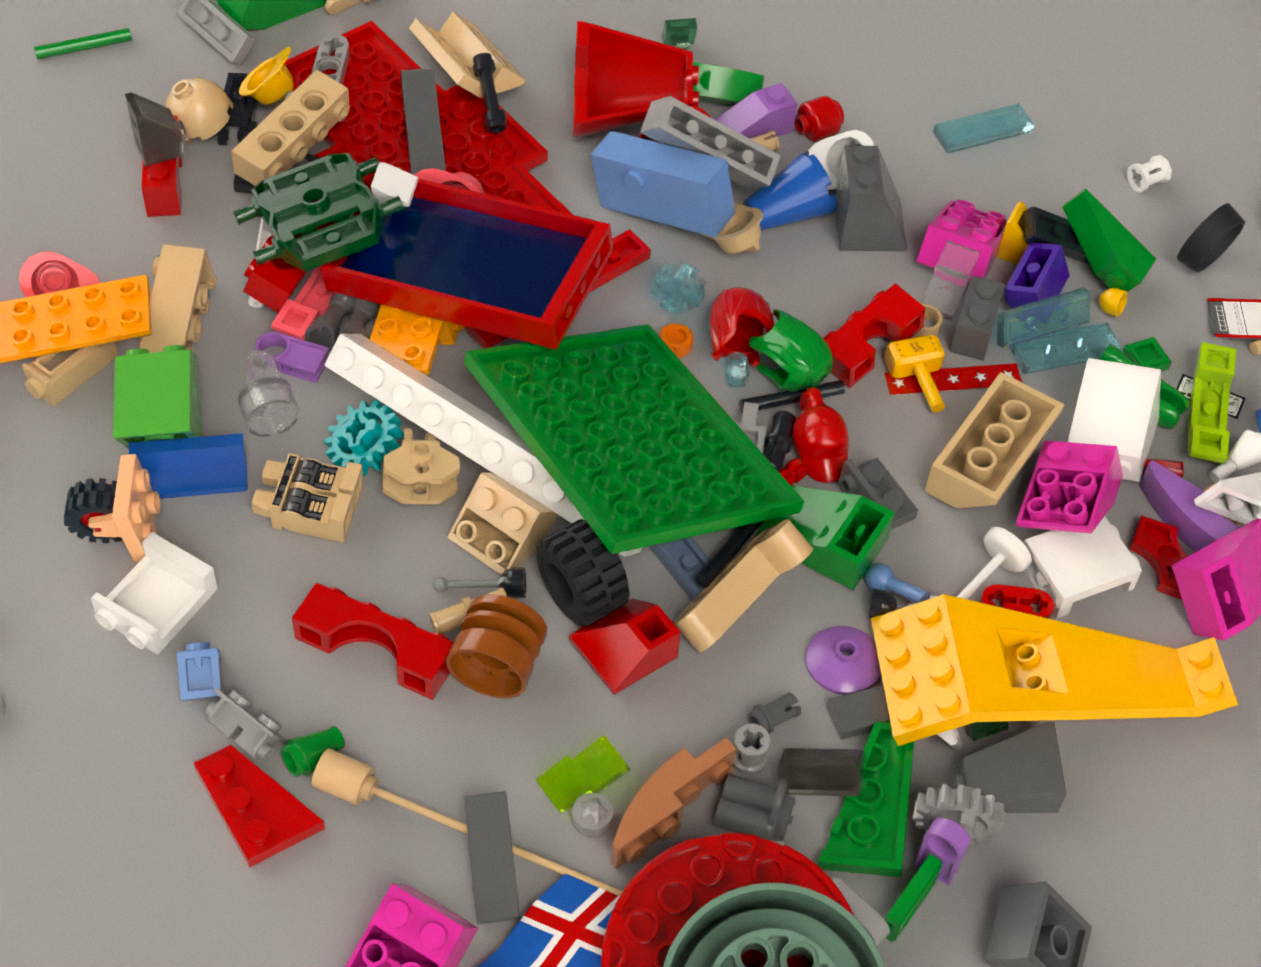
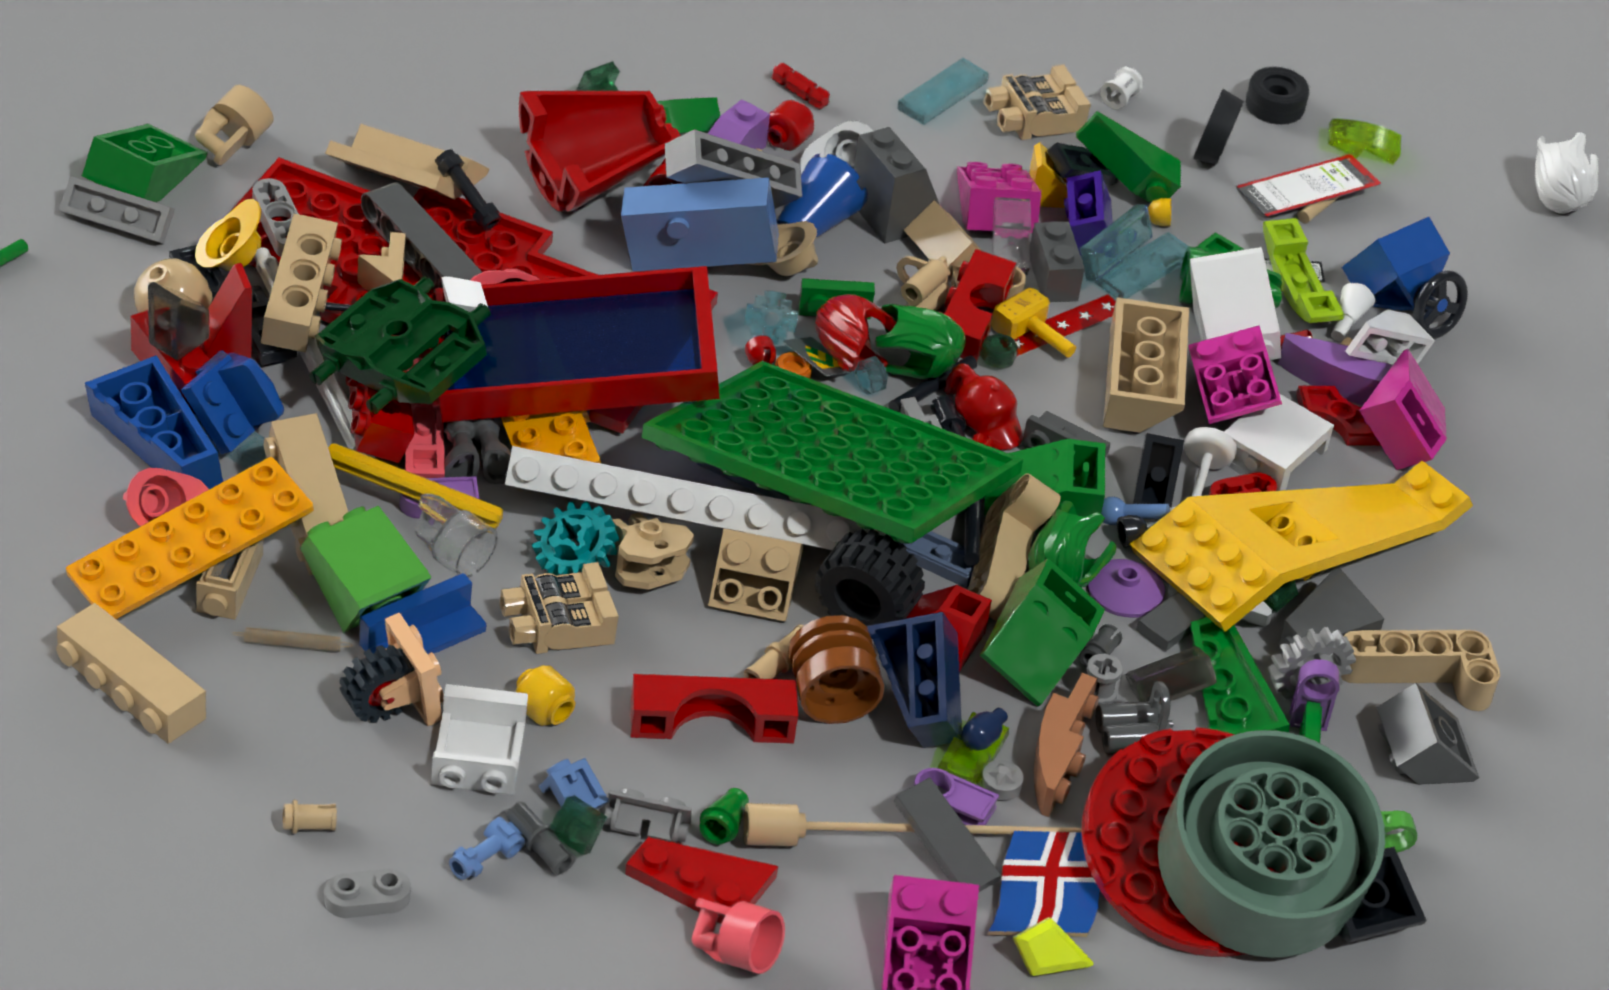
camera: 30 degrees left, 10 degrees down
(80, 440) = (291, 634): none -> tan piece
(105, 213) = (154, 420): none -> blue wedge
(109, 695) = (500, 837): none -> medium blue bar
(138, 708) = (541, 838): none -> dark grey axle
(168, 211) = (232, 399): none -> blue piece
(173, 709) = (578, 824): none -> clear green tile
(209, 158) = (231, 316): none -> red slope
(233, 880) = (747, 938): none -> coral piece
(240, 572) = (548, 695): none -> yellow head
(265, 339) = (409, 483): none -> yellow axle
(382, 141) = (383, 269): none -> tan slope
(512, 581) = (799, 614): hinge -> none
(541, 823) = (968, 800): none -> medium lavender piece
(572, 685) = (924, 674): none -> dark blue wedge
(597, 758) = (984, 729): none -> dark blue cylinder
(656, 308) = (755, 350): none -> red hinge
(698, 334) = (816, 355): none -> dark grey sticker
(713, 680) = (1041, 630): none -> green slope
(772, 290) = (817, 291): none -> green plate
(792, 605) = (1065, 544): none -> green hair
(837, 303) = (928, 286): none -> tan piece
(857, 87) = (801, 85): none -> red axle
(872, 385) = (999, 350): none -> clear green tile
(887, 261) = (941, 235): none -> tan brick
(942, 555) = (1158, 470): none -> black slope
(1058, 164) = (1039, 104): none -> tan hips
(1079, 854) = (1428, 657): none -> tan beam

